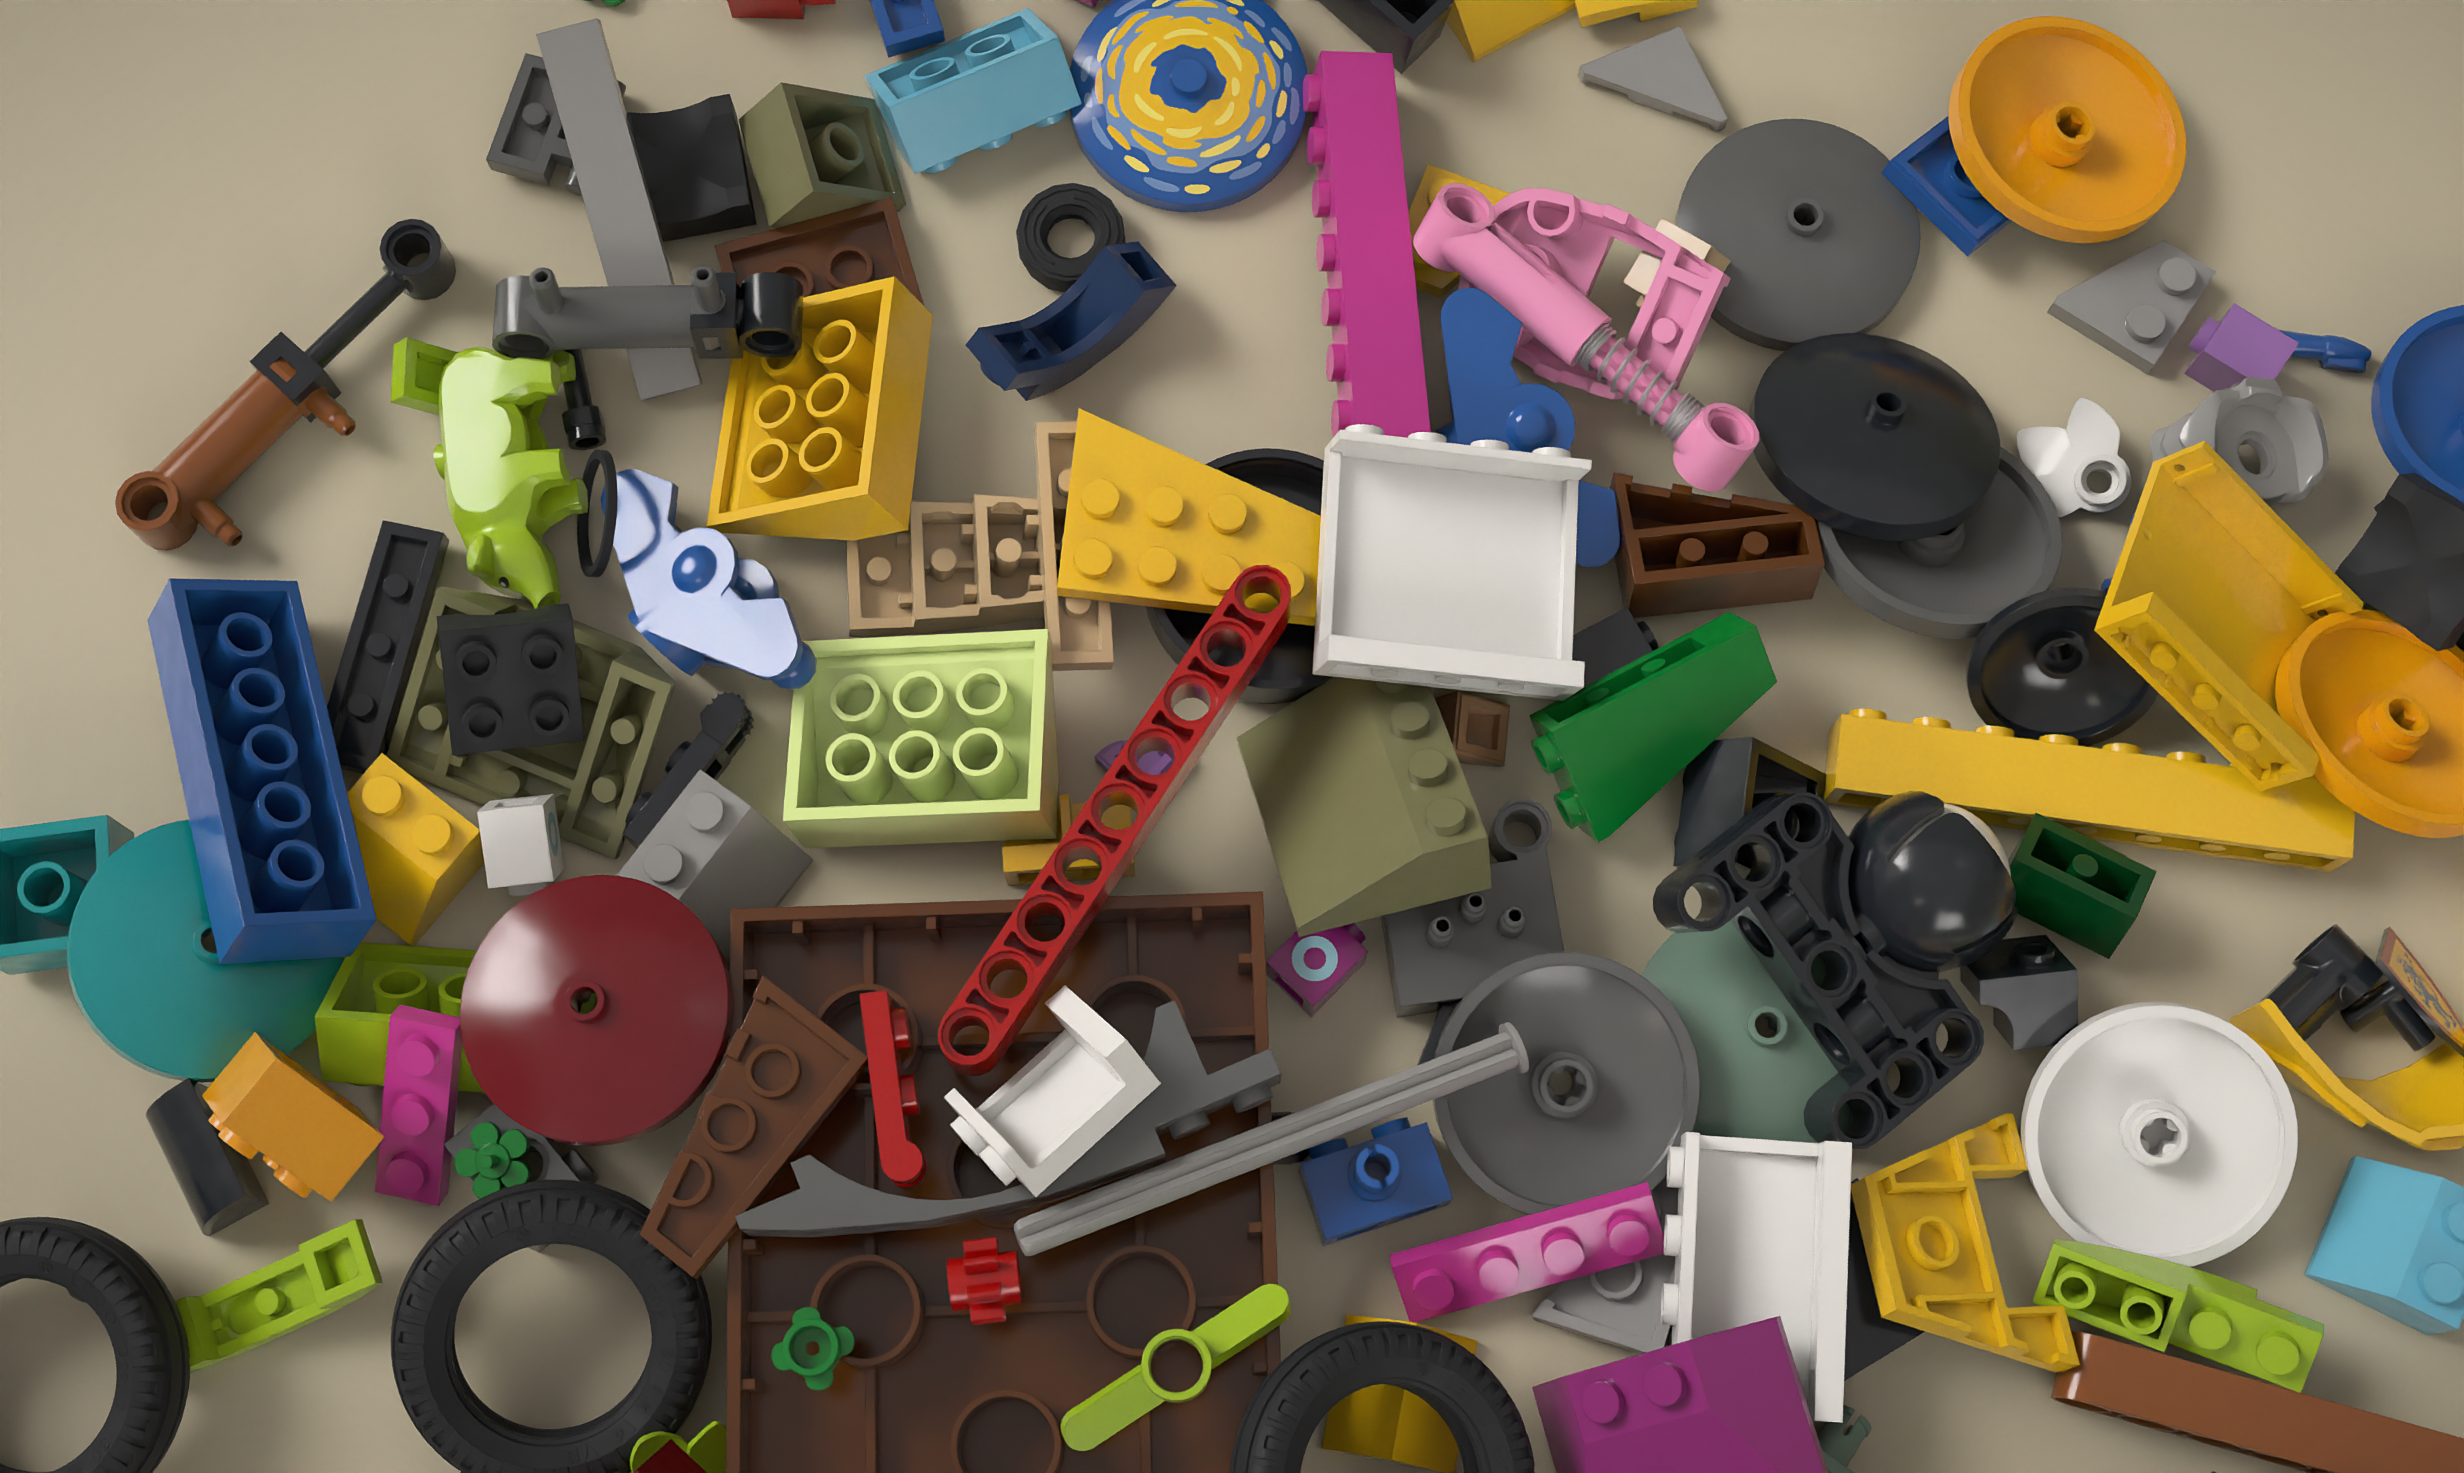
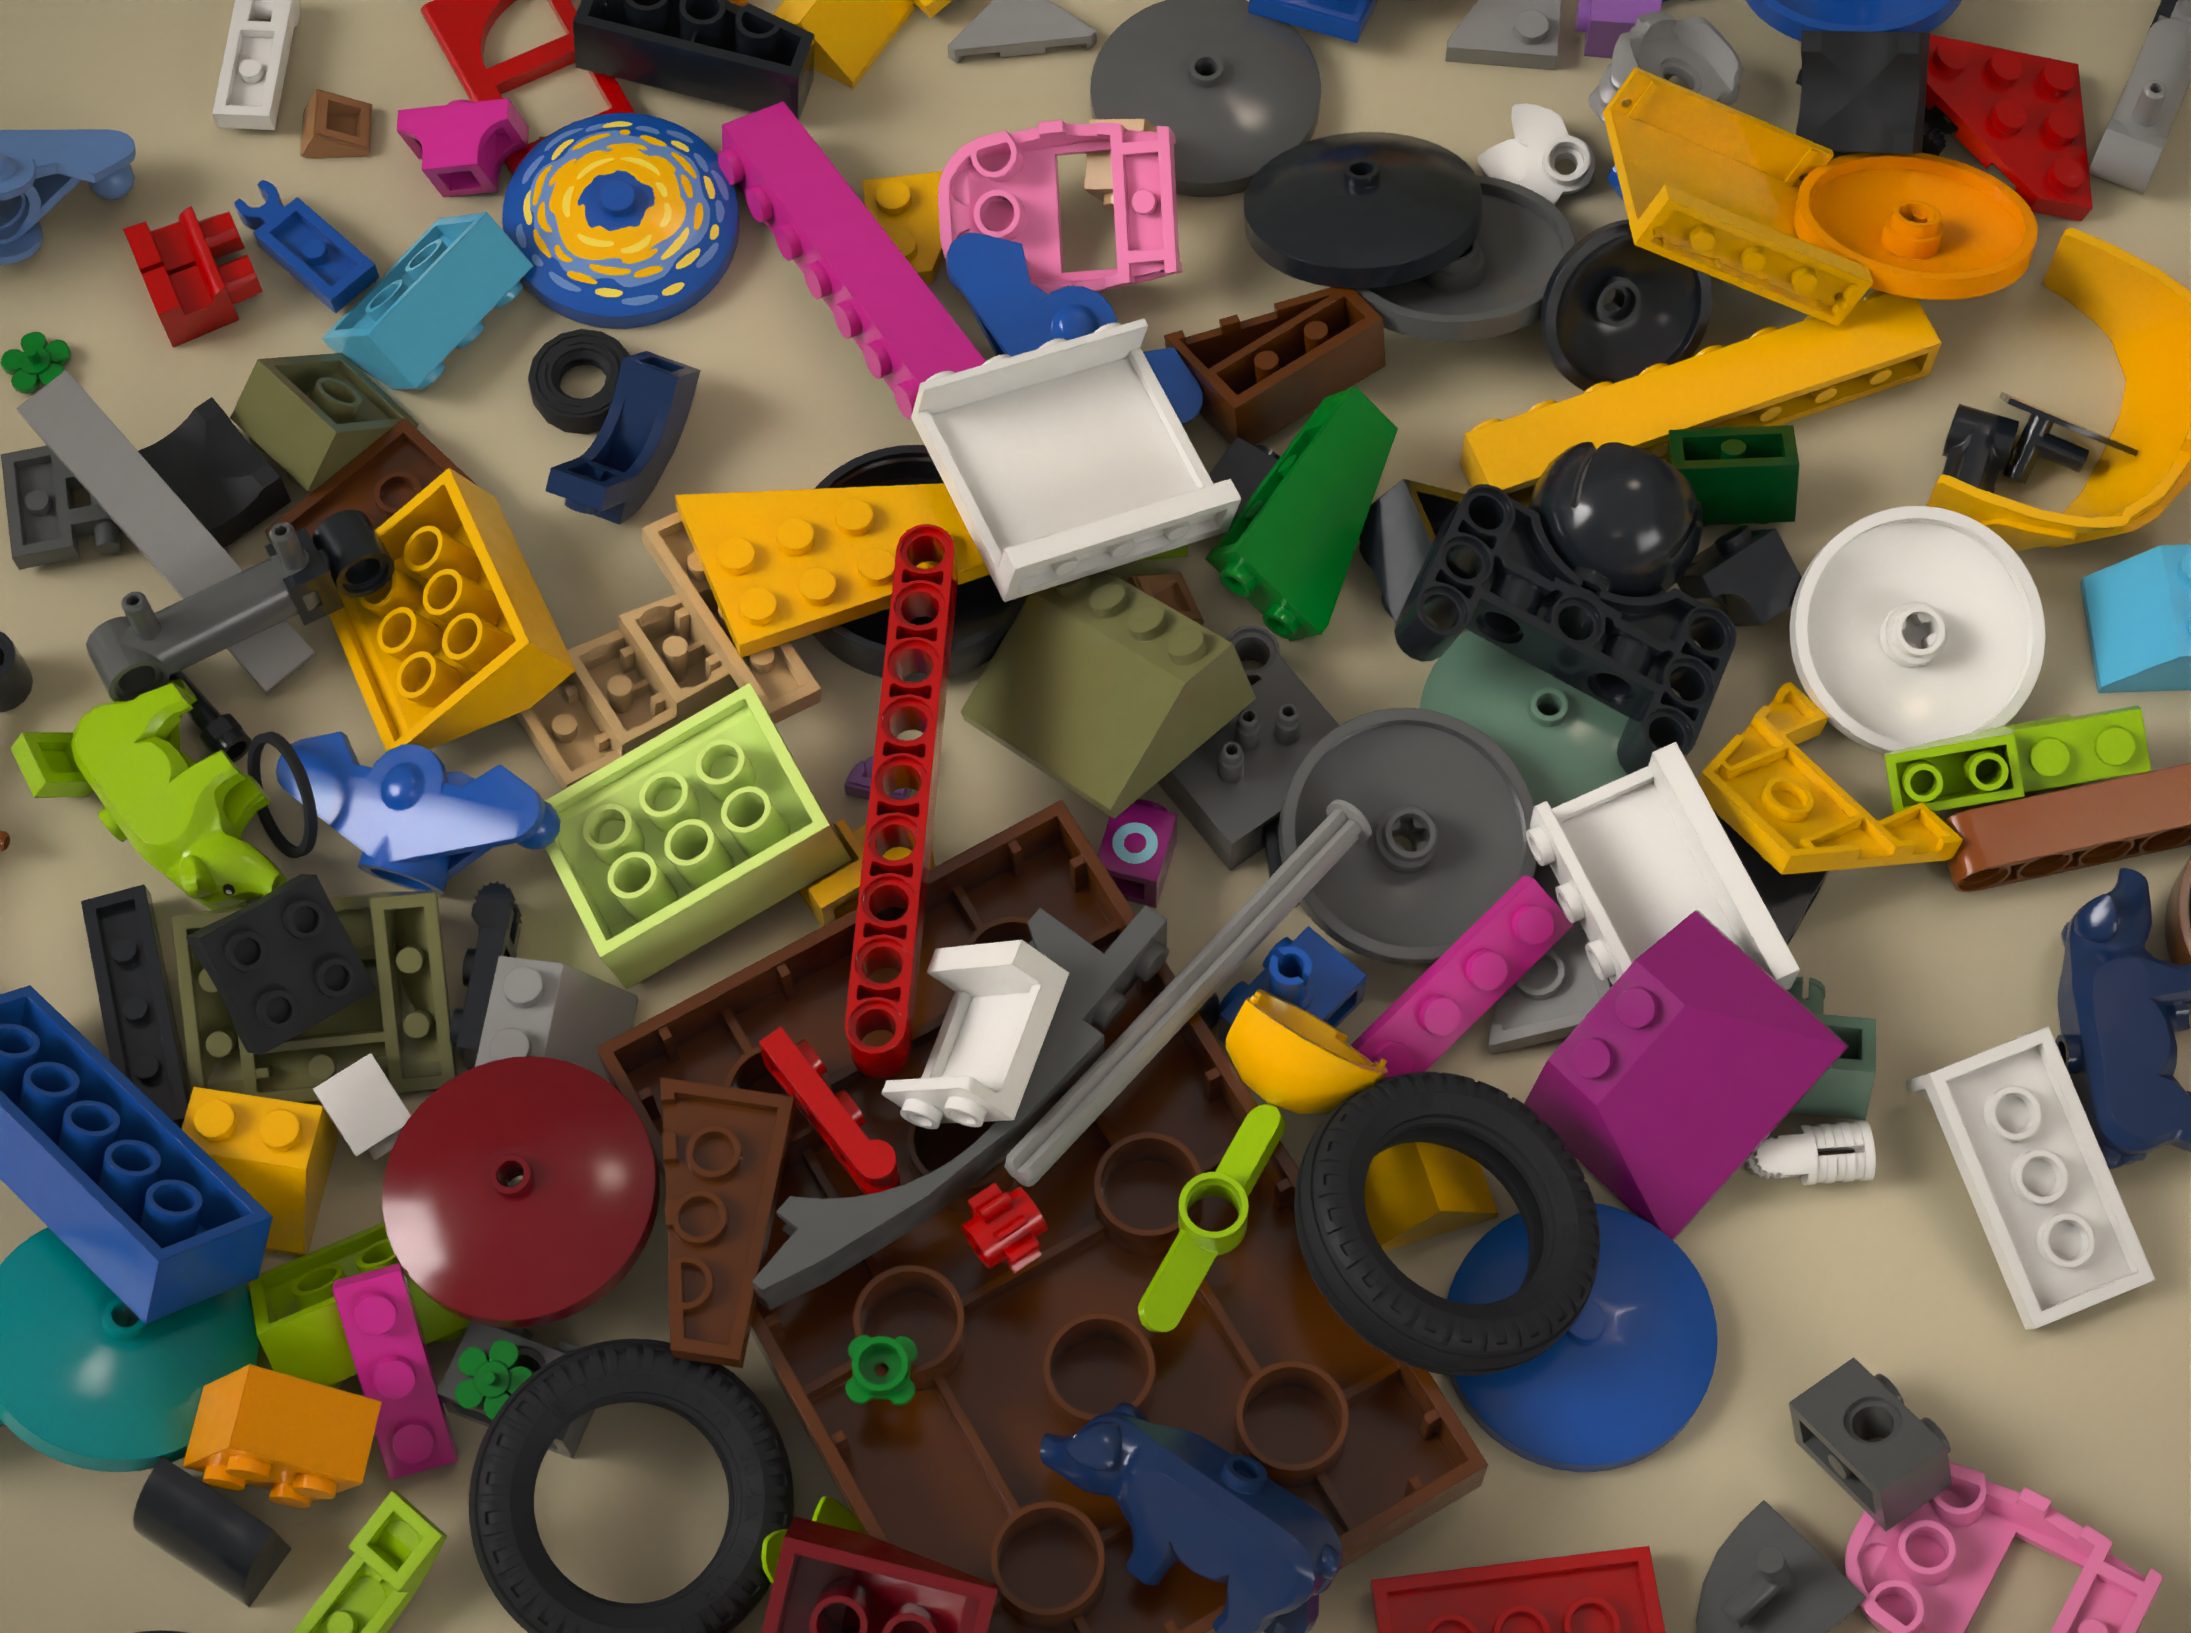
camera: 25 degrees left, 10 degrees down
(1340, 1255) = (1296, 1057): none -> yellow cylinder
(1465, 239) = (934, 208): bright pink piece -> none

